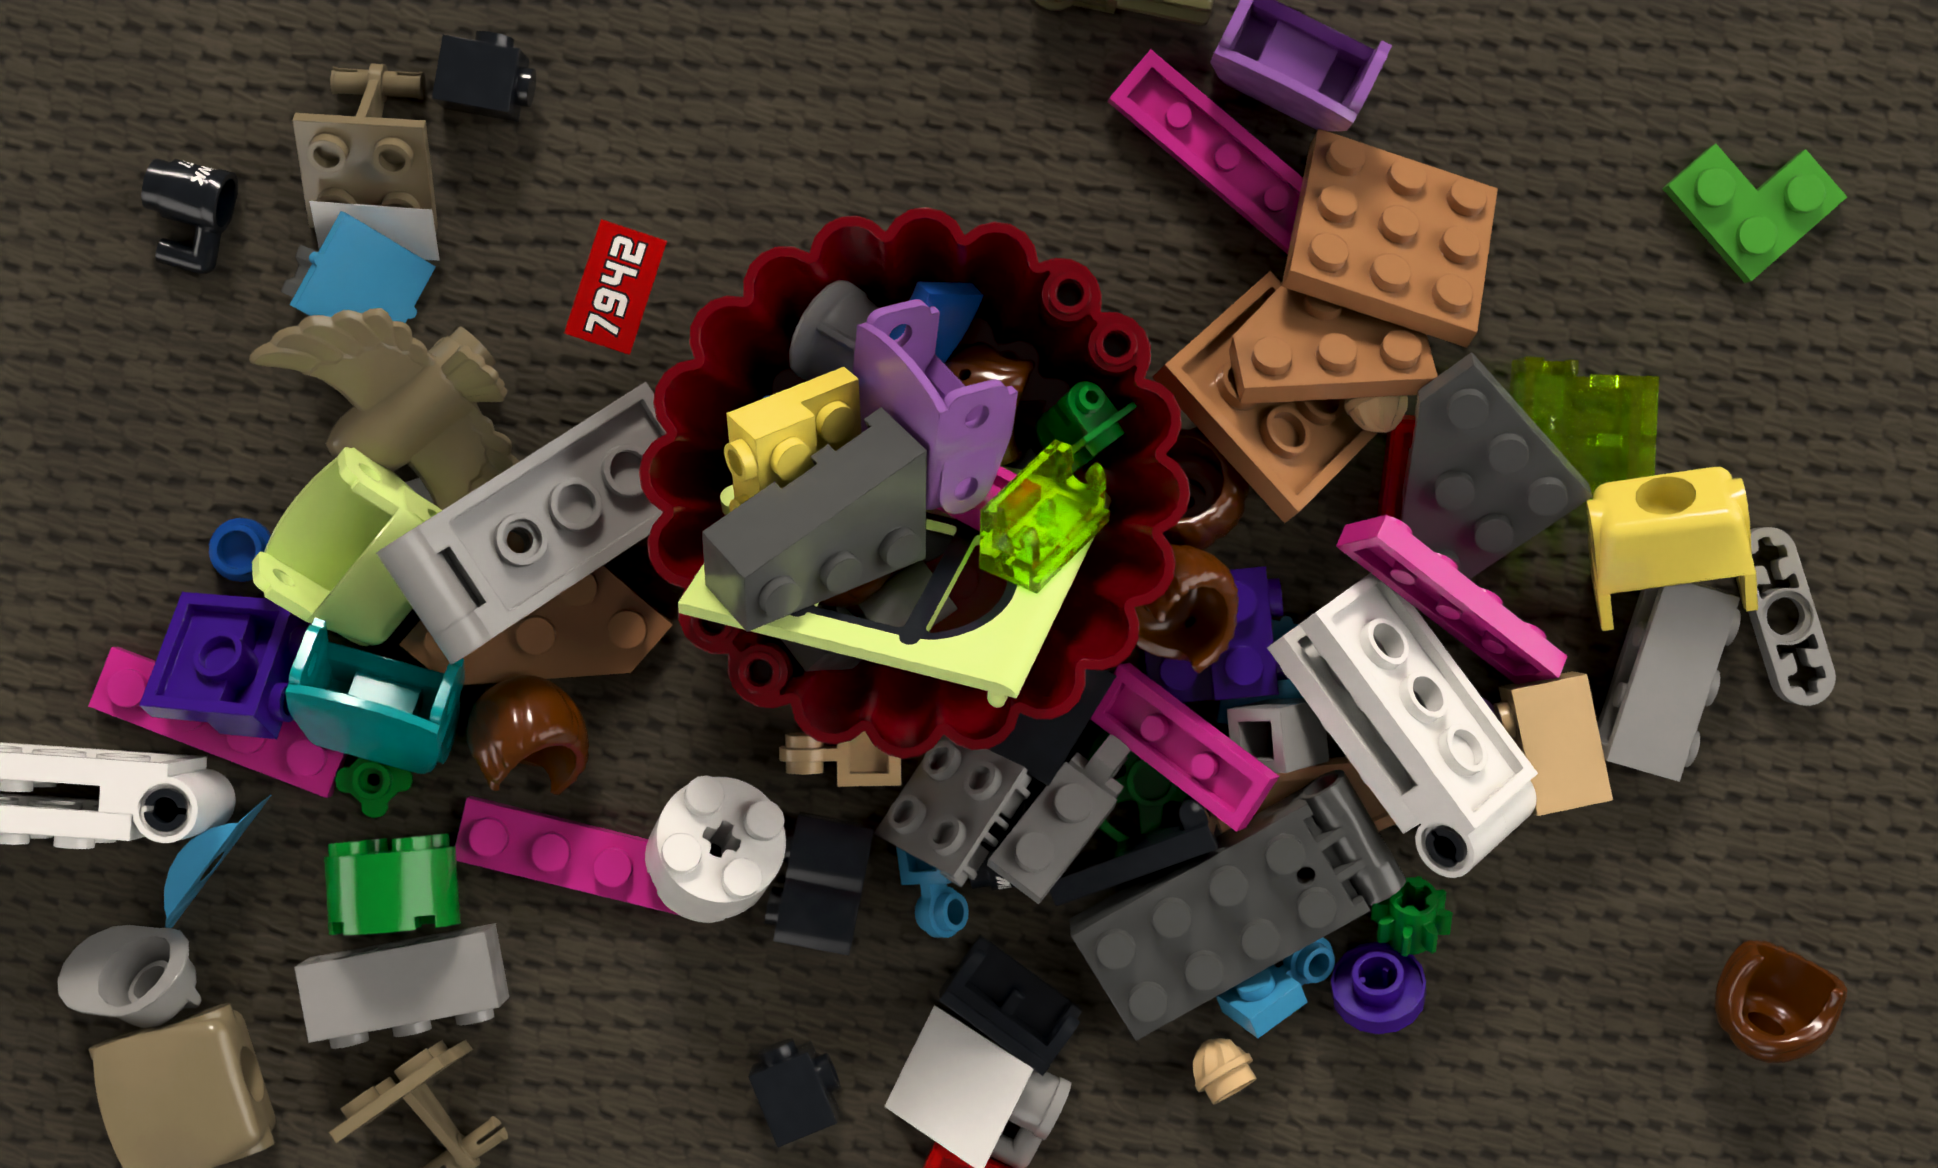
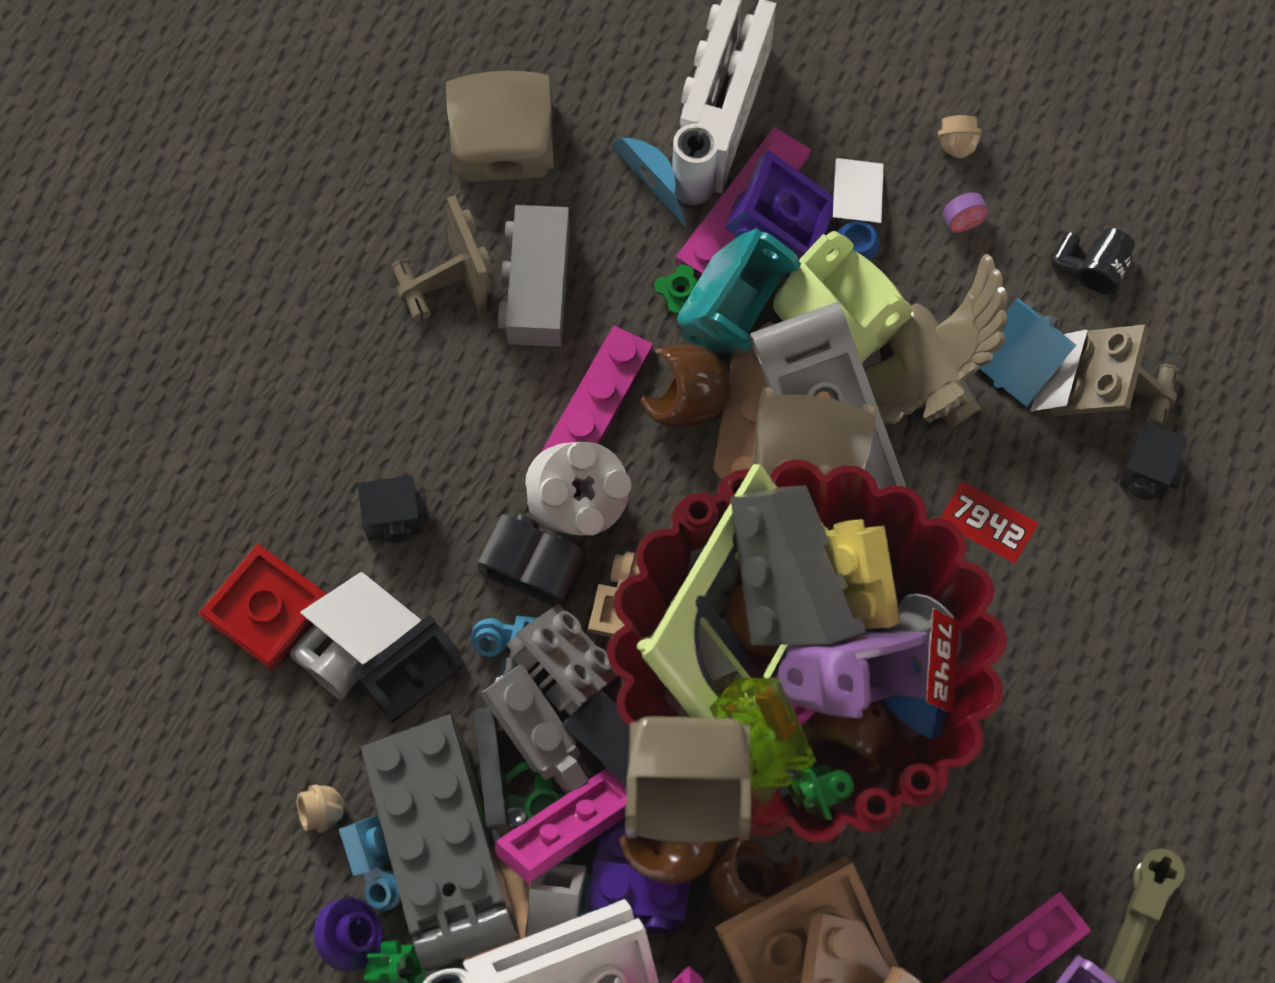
camera: 105 degrees right, 20 degrees down
(40, 438) = (959, 135): none -> tan plate
(131, 975) = (588, 113): light grey piece -> none
(160, 406) = (965, 212): none -> tile
(160, 565) = (858, 190): none -> white sticker
(391, 889) = (607, 279): green brick -> none
(596, 545) = (811, 430): none -> dark tan piece
(888, 298) = (942, 661): none -> red sticker
(1148, 598) = (688, 779): none -> dark tan piece

